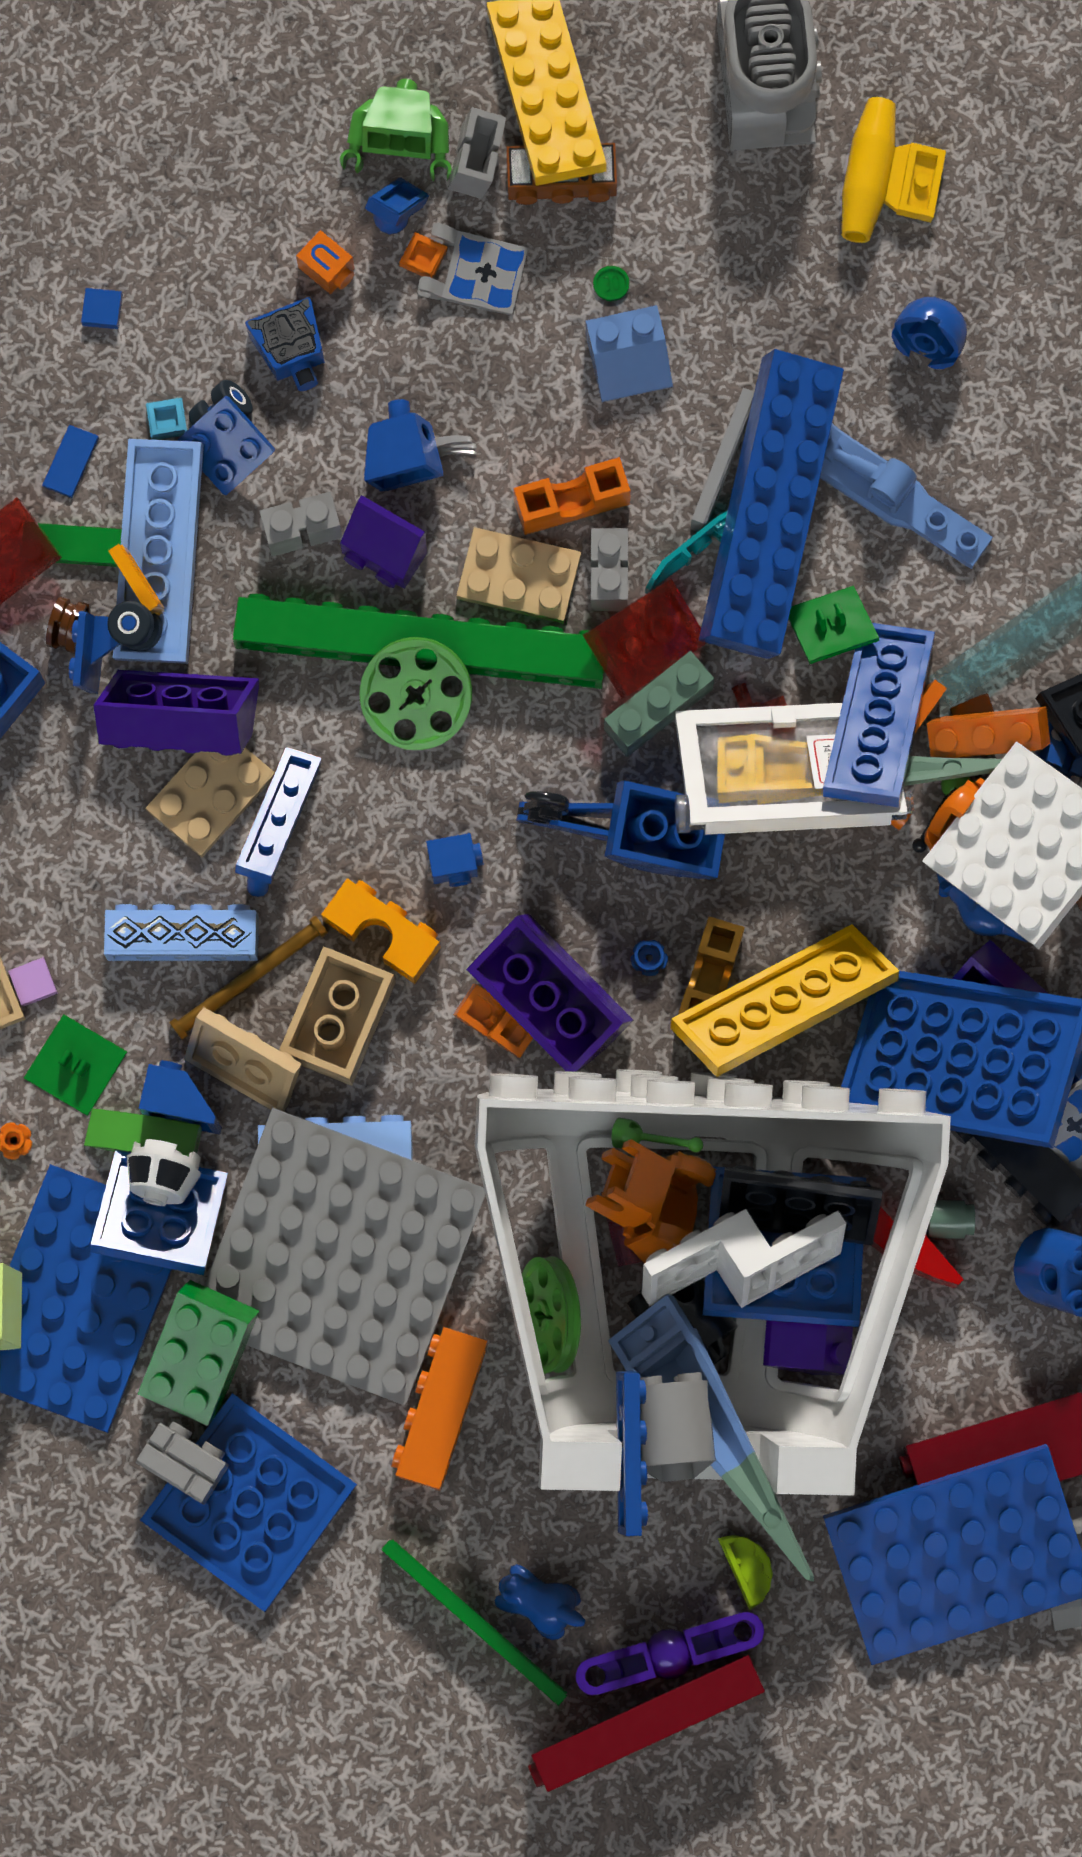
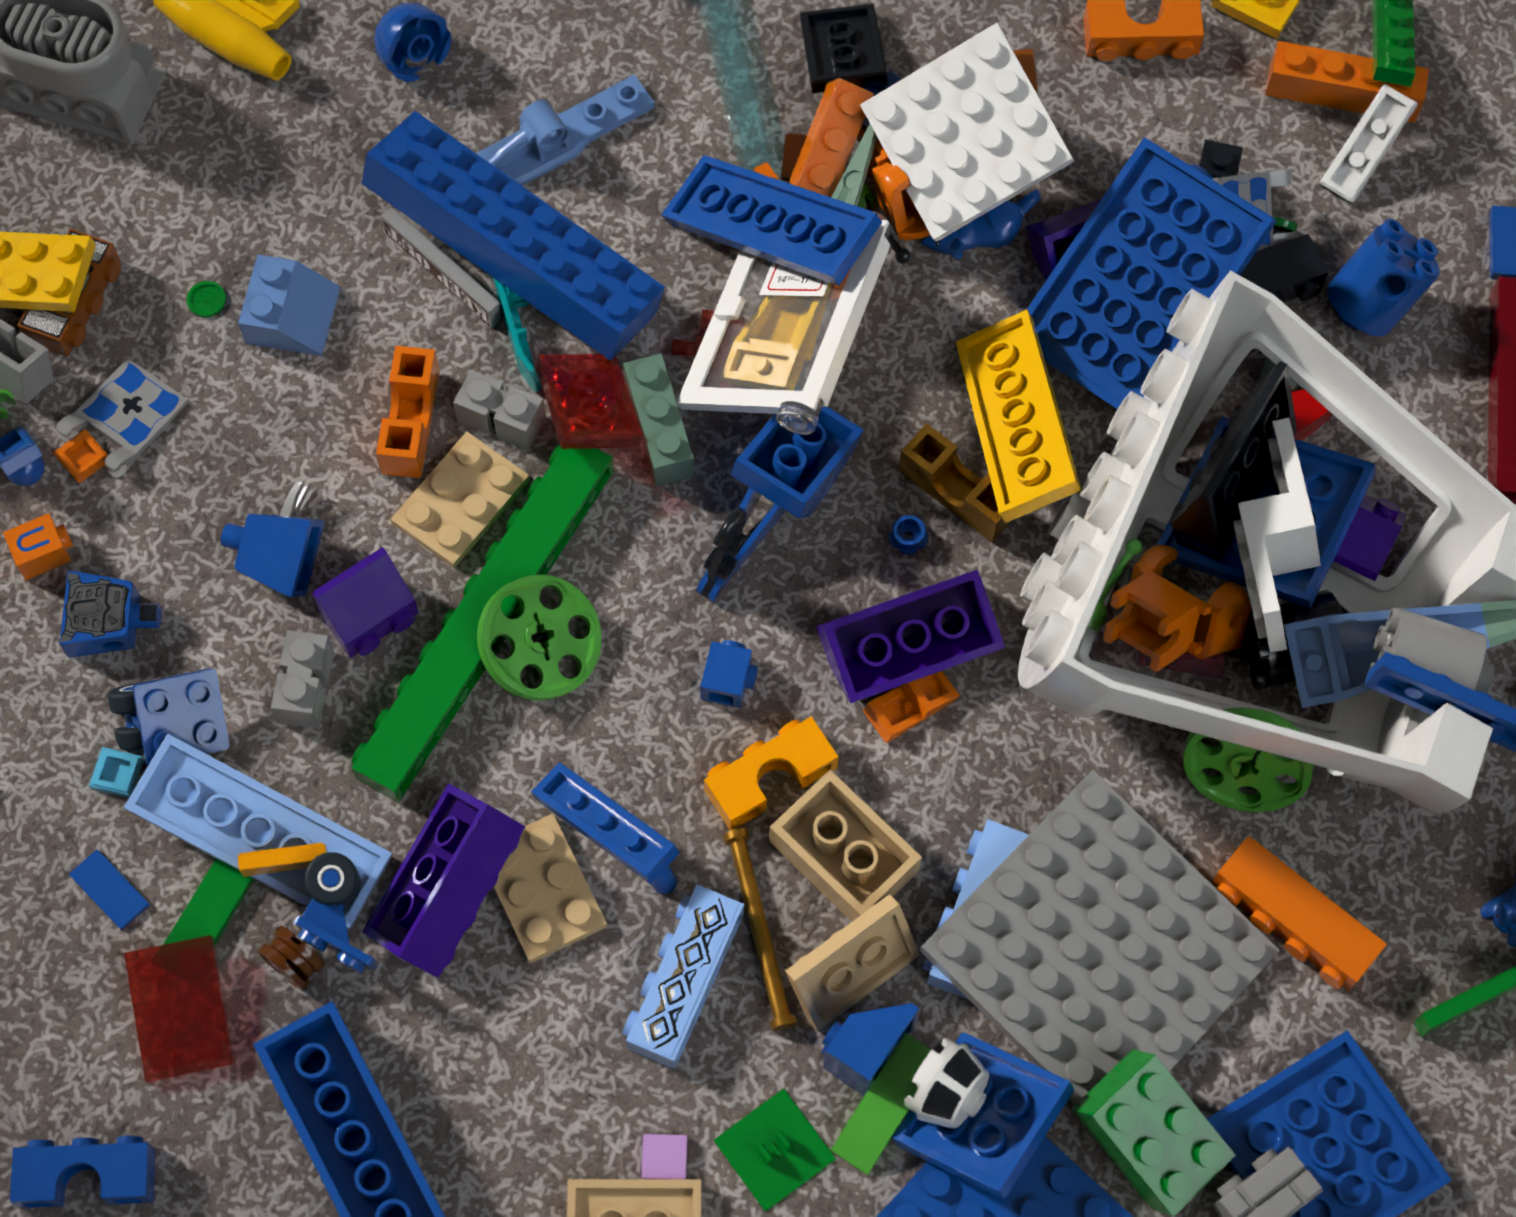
camera: 70 degrees left, 10 degrees down
(832, 625) = (655, 236): green piece -> none

